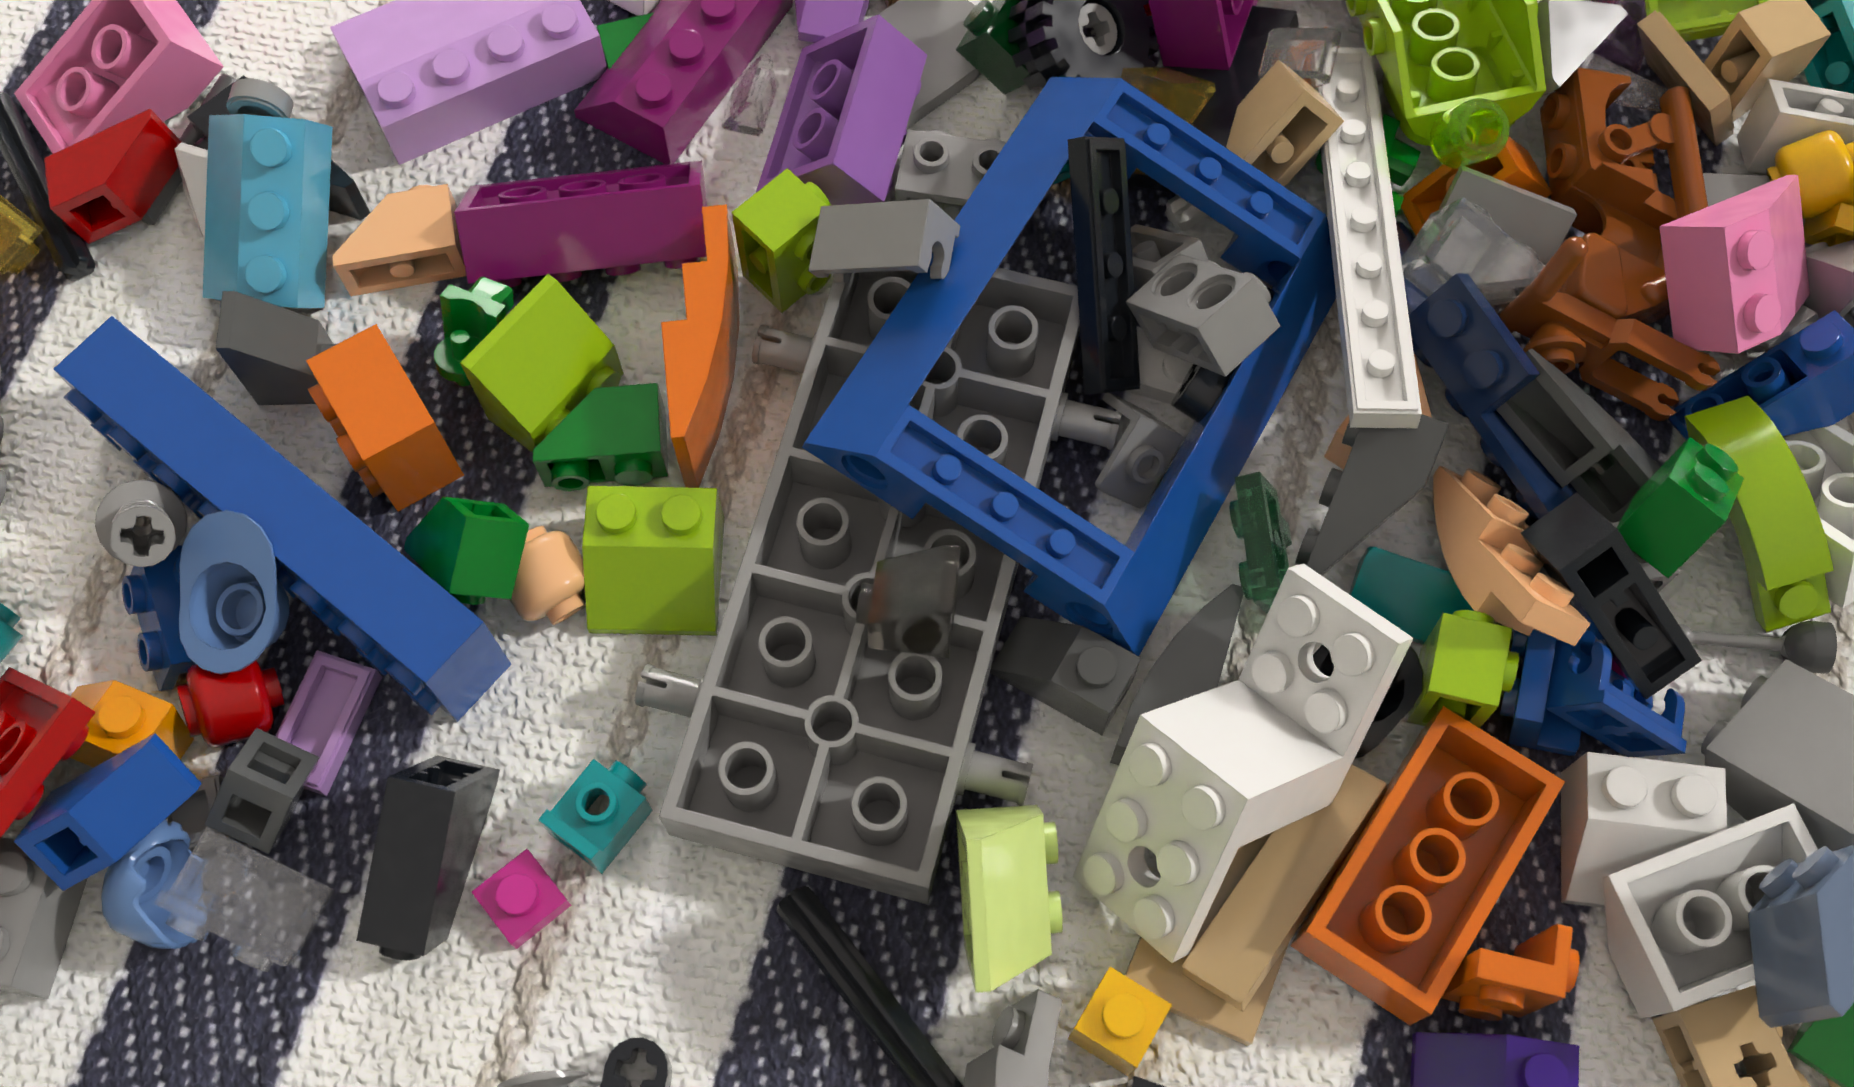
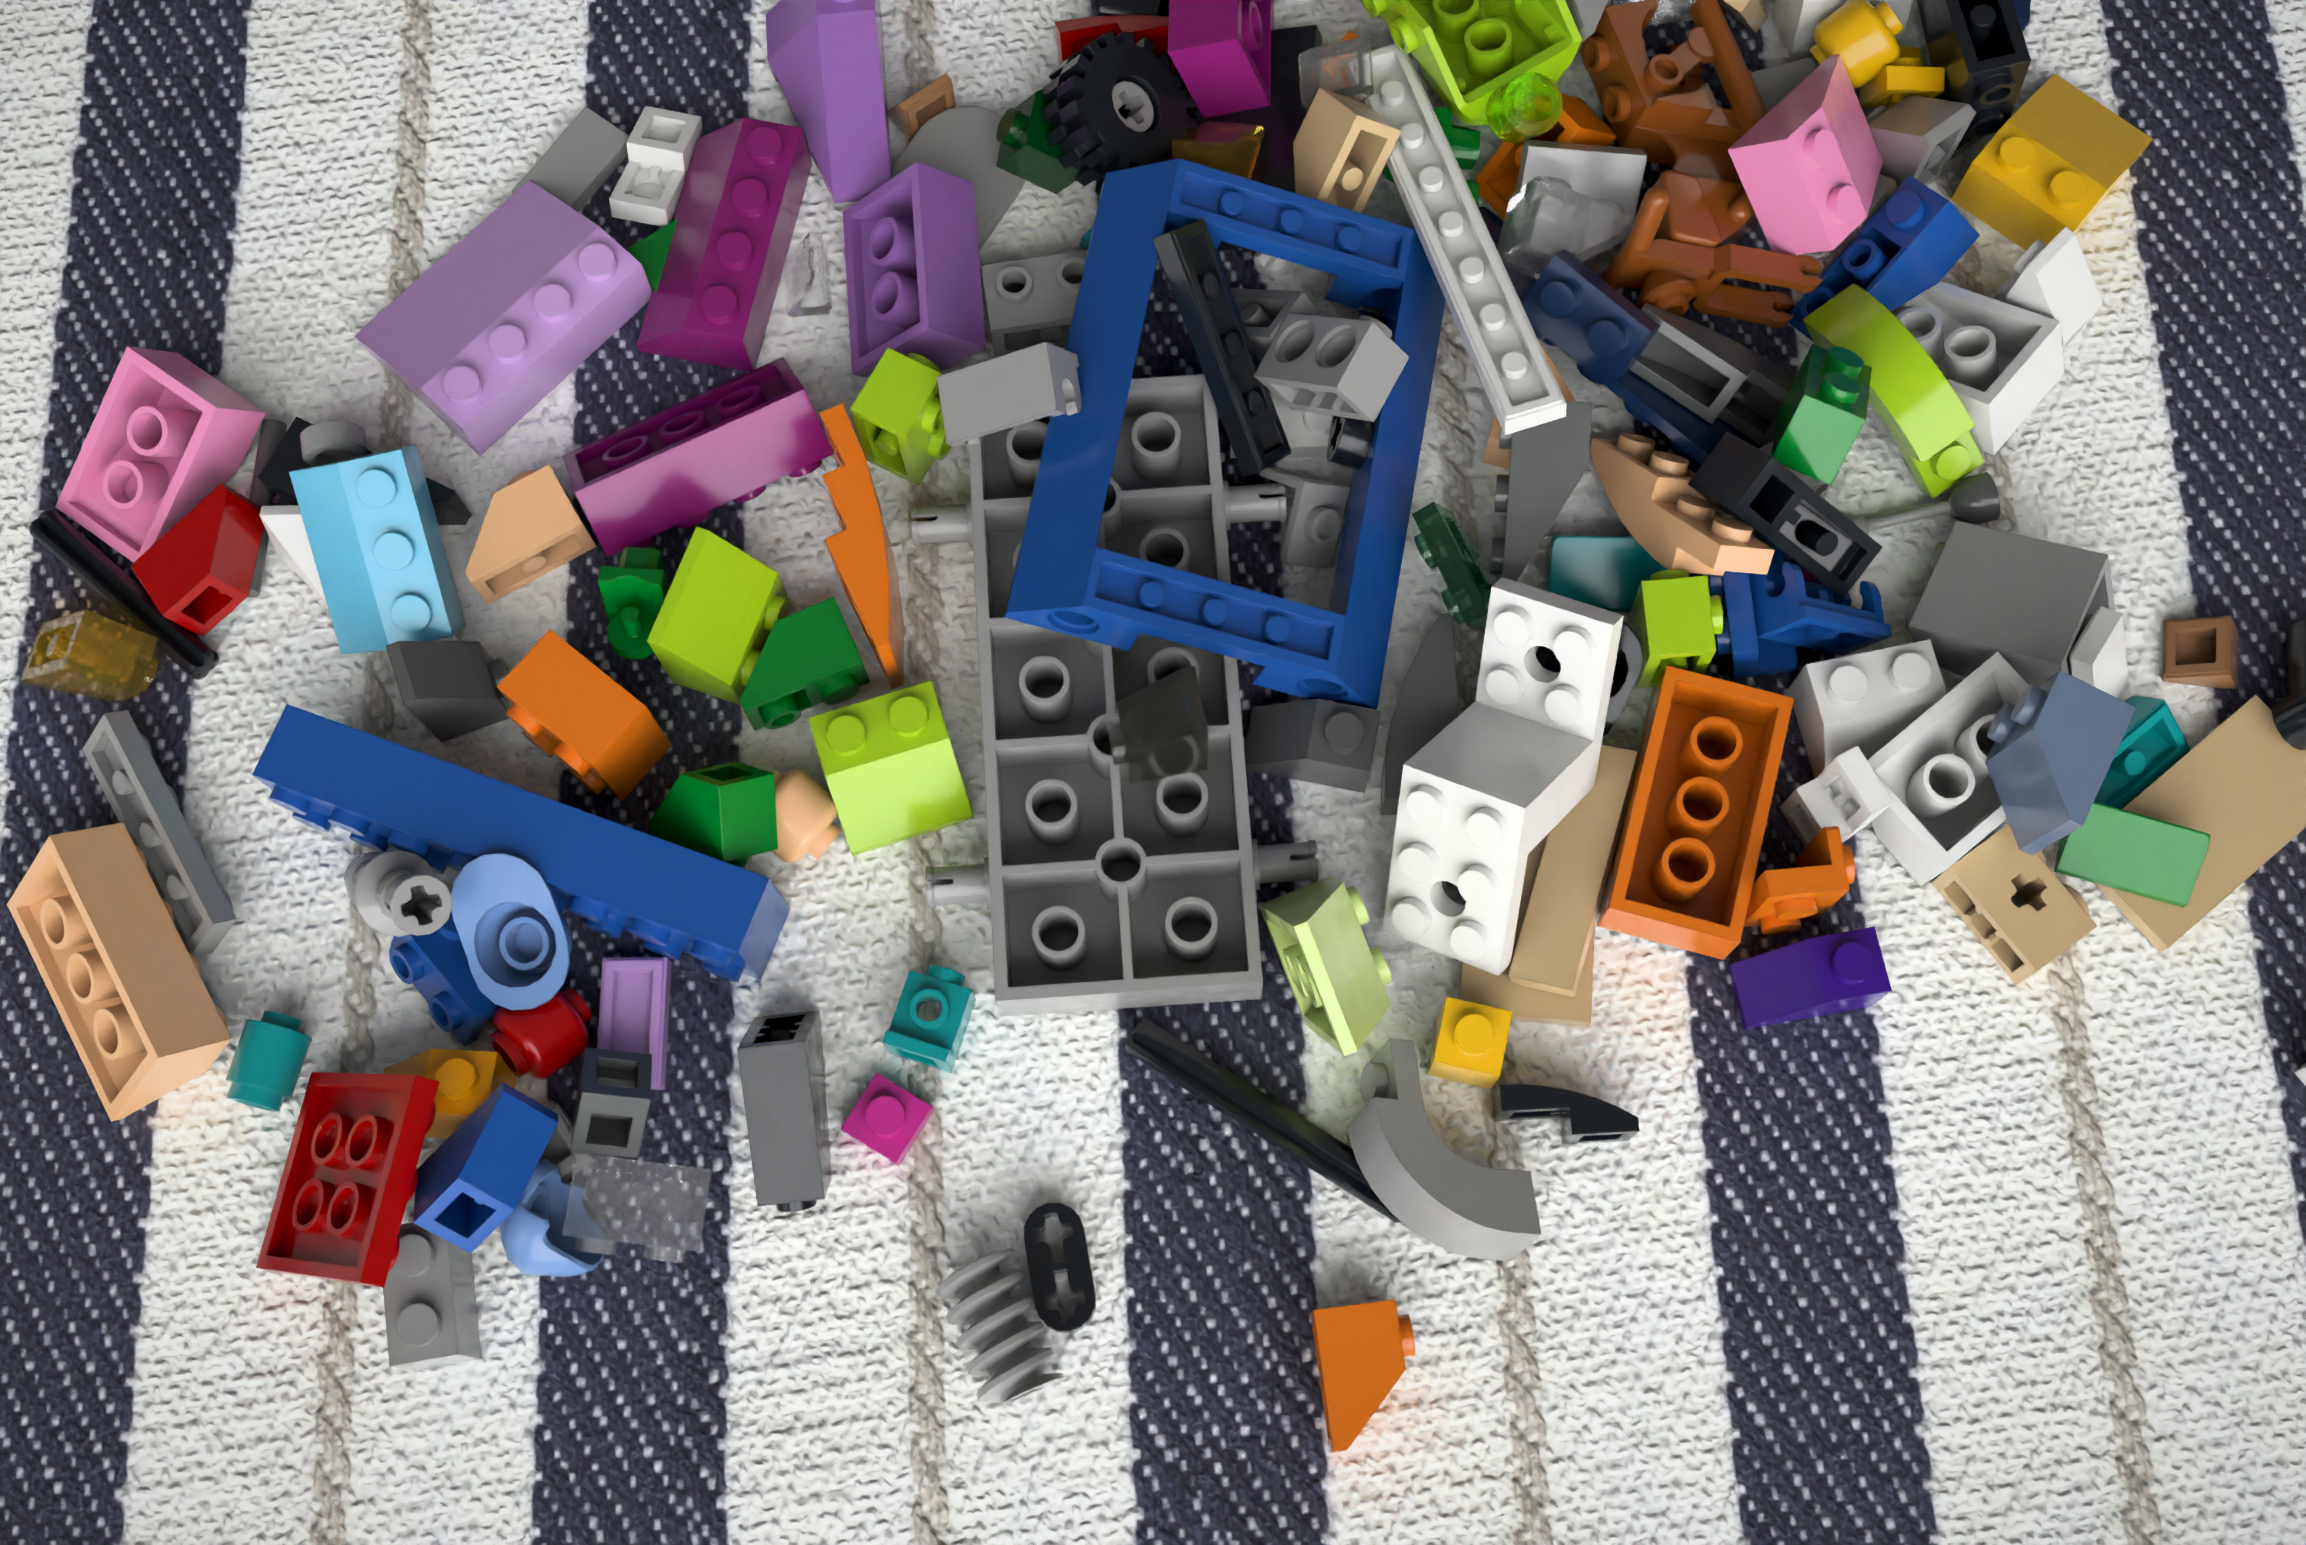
camera: 15 degrees left, 5 degrees up
(1587, 897) = (1841, 796): none -> white slope

